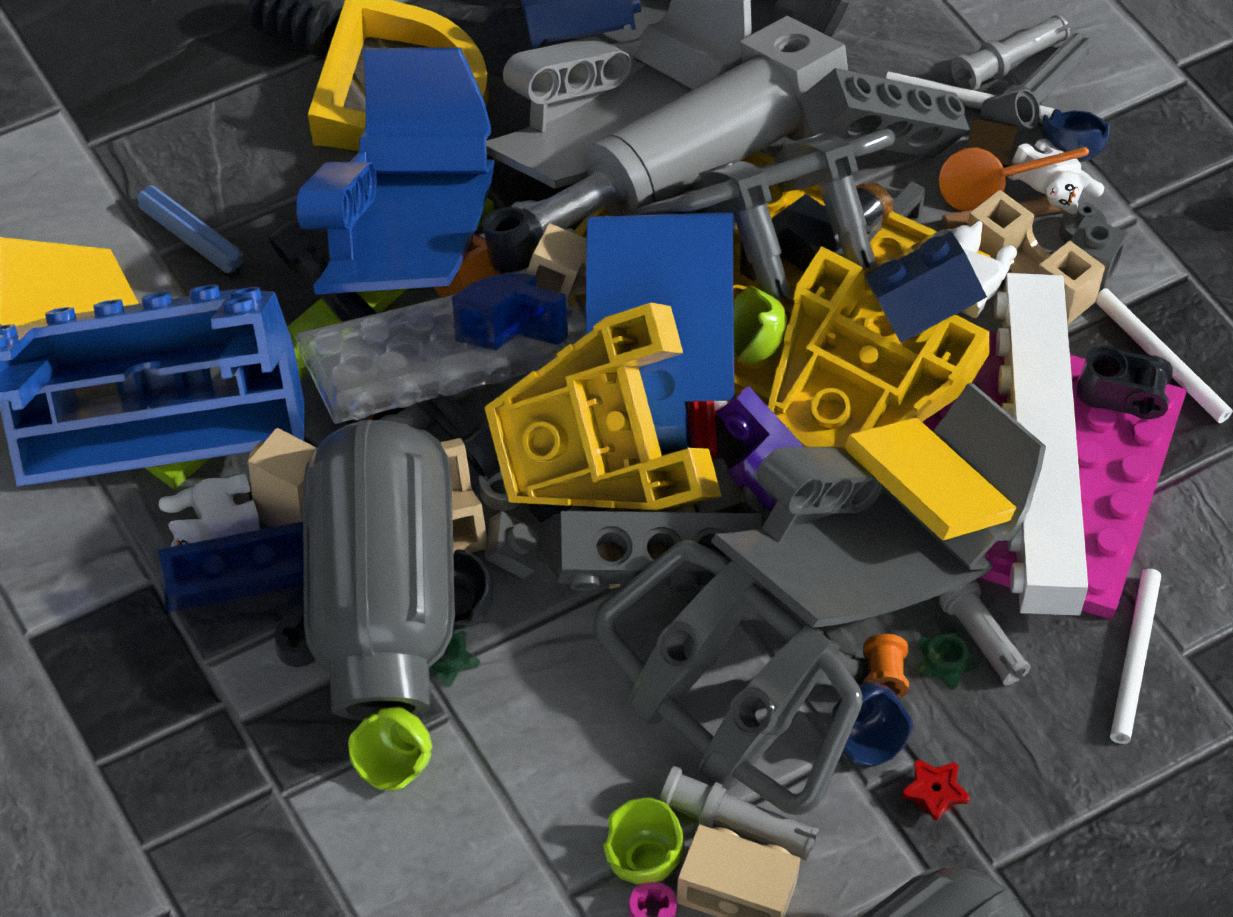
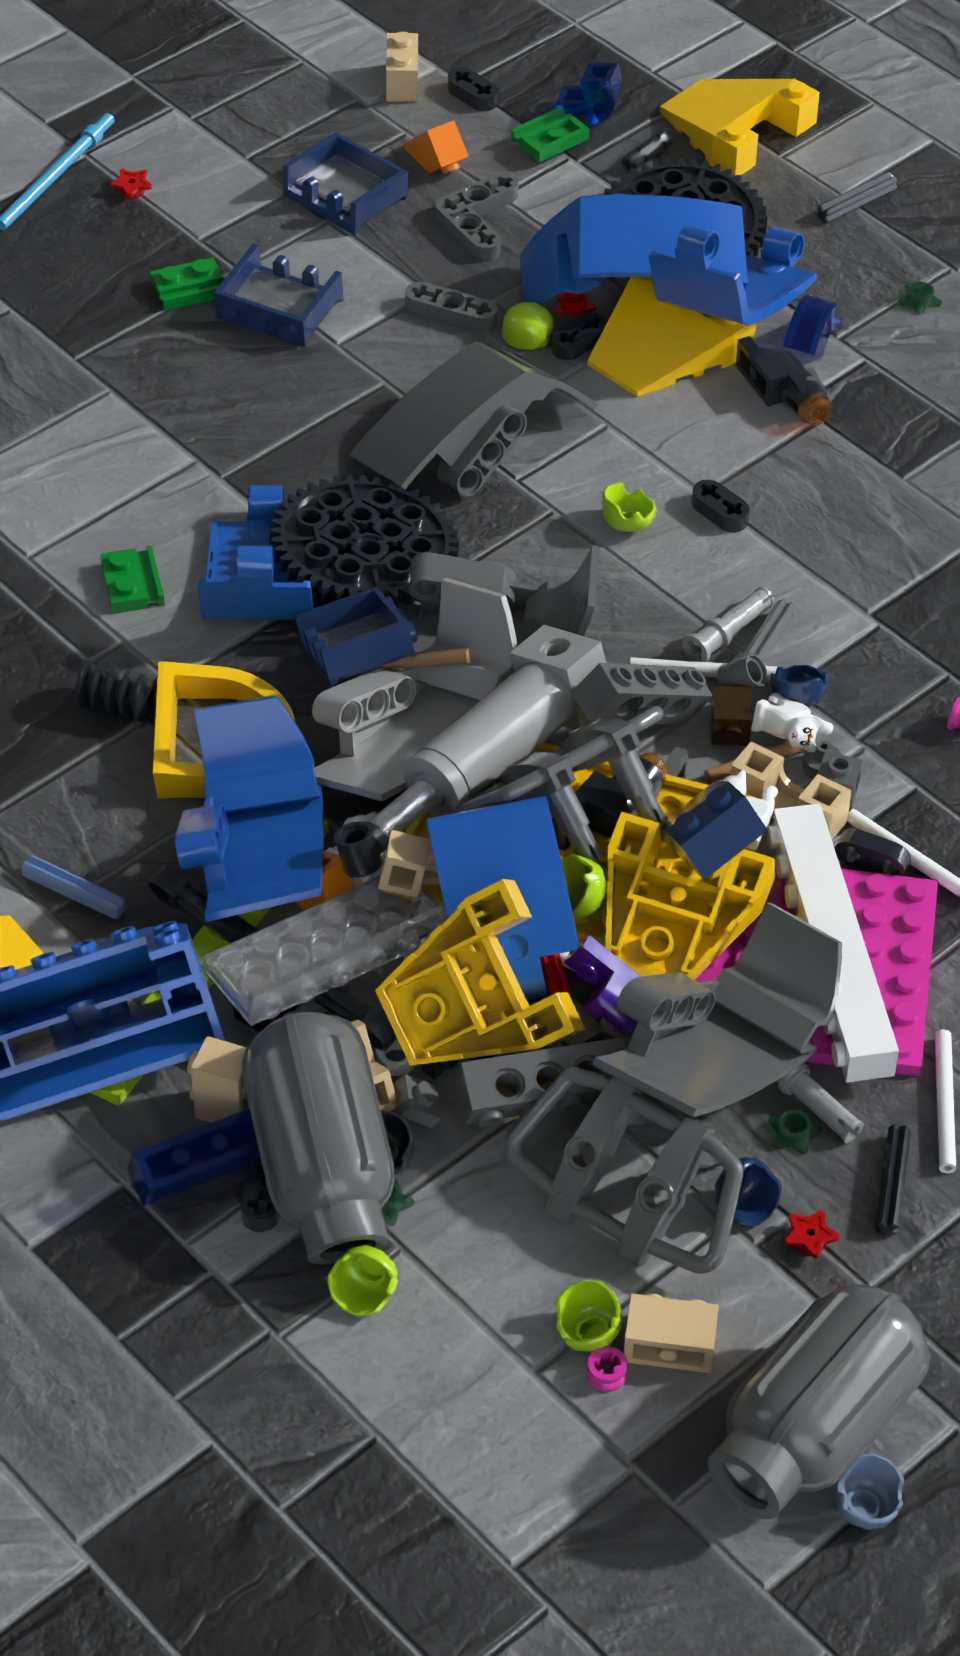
camera: 10 degrees left, 5 degrees down
(220, 506) = (164, 1113): white animal -> none
(508, 306) = (375, 903): clear blue brick -> none
(653, 35) = (432, 658): none -> medium nougat bar
(713, 806) = (640, 1280): light grey pin -> none
(885, 662) = (746, 1139): orange bush -> none
(929, 478) = (753, 985): yellow tile -> none
(976, 175) = (726, 733): orange piece -> none
(1050, 740) = (893, 1180): none -> black axle
(1102, 330) = (872, 853): none -> black beam
(1122, 380) = (886, 881): black piece -> none

